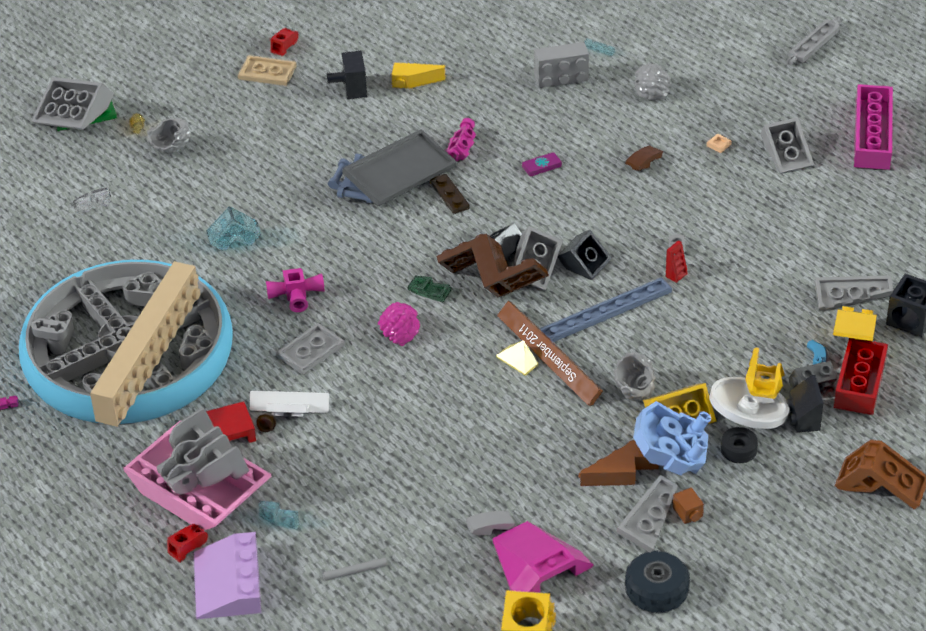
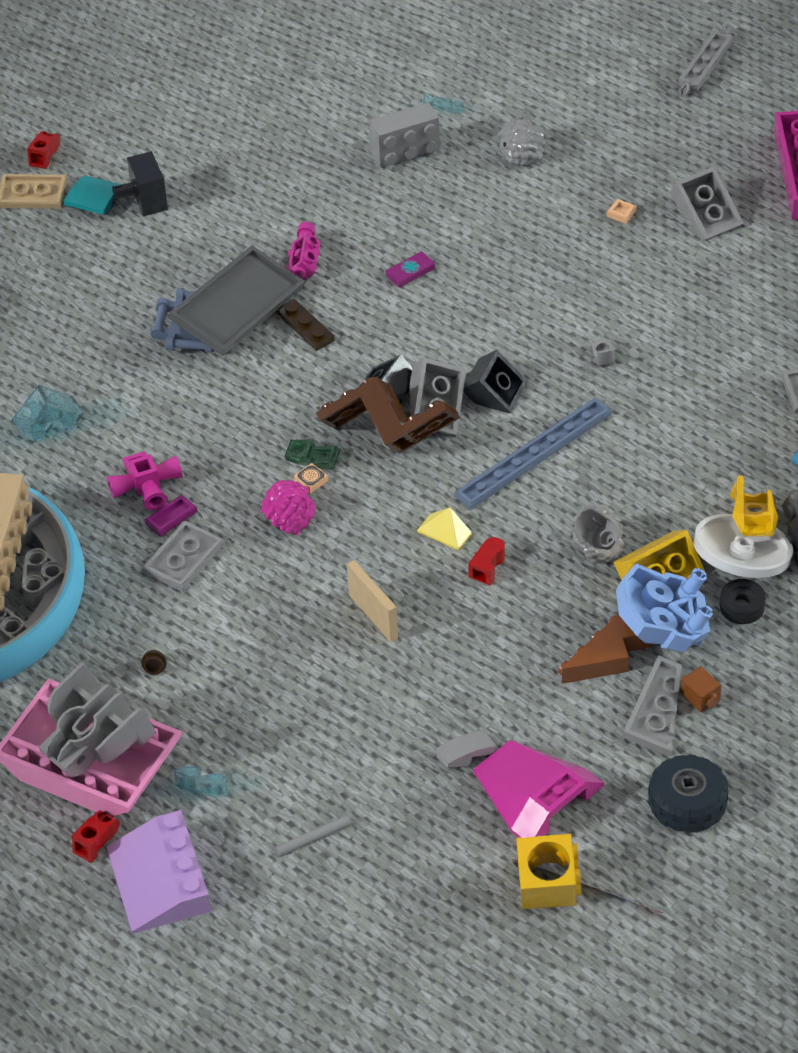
camera: 10 degrees left, 5 degrees up
(233, 421) = (114, 667): red panel -> none
(293, 402) = (176, 631): white bracket -> none
(309, 318) = (171, 515): none -> magenta tile
(310, 78) = (91, 195): none -> teal slope
(414, 75) = (223, 172): yellow slope -> none
(424, 305) = (311, 477): none -> light nougat tile
(445, 401) = (372, 600): none -> tan tile
(543, 384) = (486, 559): none -> red leg
(550, 353) = (483, 517): dark orange tile -> none
(643, 157) = (534, 243): reddish brown slope -> none
(676, 264) = (610, 377): red slope -> none

